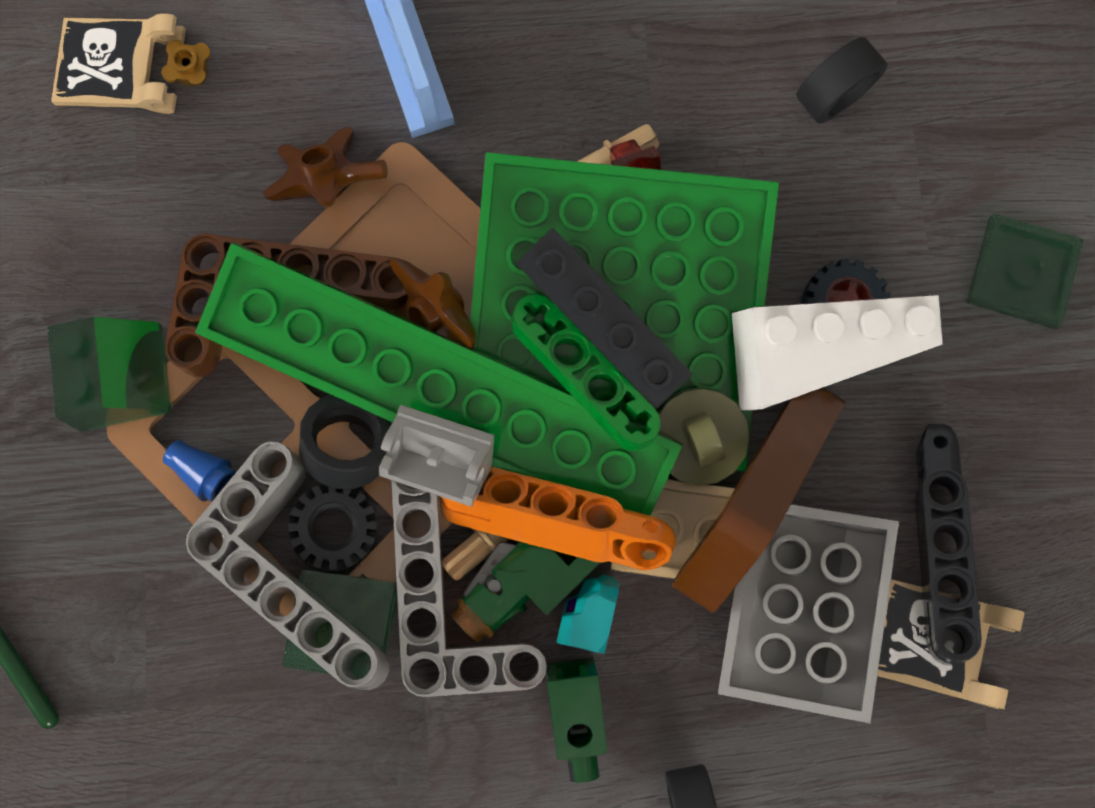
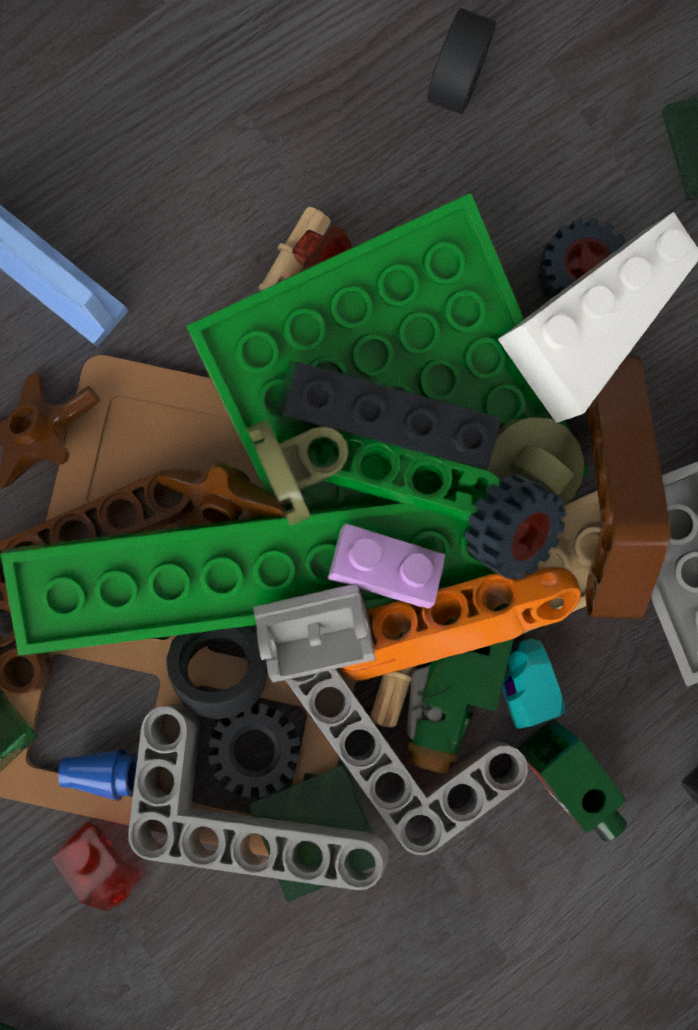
camera: 35 degrees left, 5 degrees up
(147, 546) = (95, 869): none -> clear red bracket
(496, 308) = (290, 467): none -> olive tile
(527, 438) = (387, 566): none -> lavender plate
(649, 466) = (515, 526): none -> black wheel

